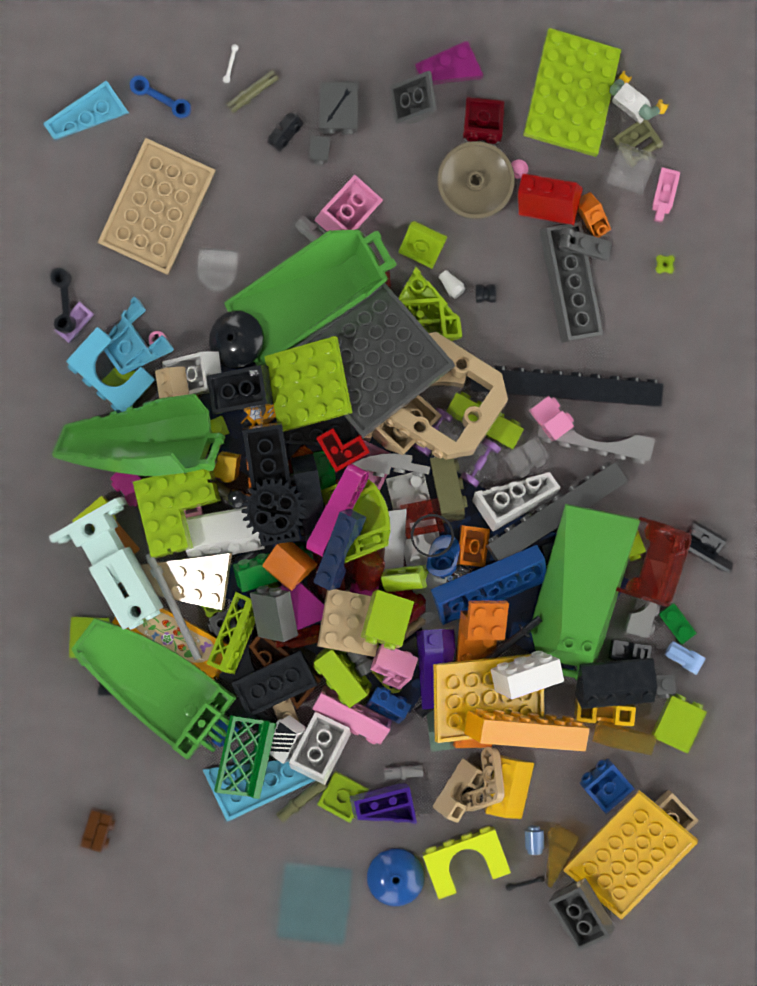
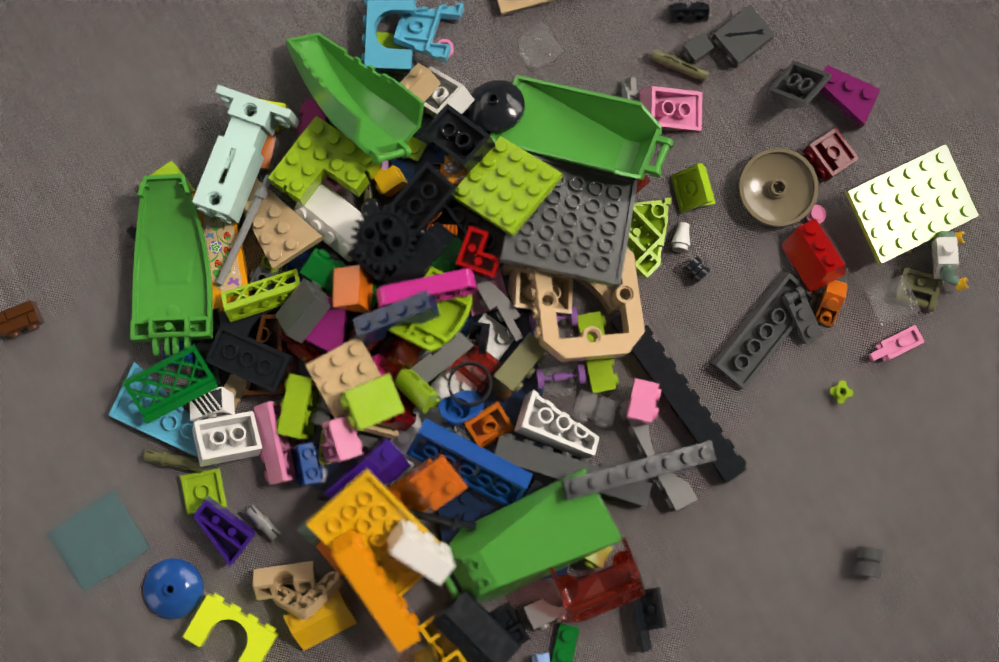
camera: 50 degrees right, 5 degrees down
(320, 174) = (672, 62): none -> olive pin
(401, 495) = (480, 333): none -> black bracket
(599, 465) = (638, 470): none -> plate

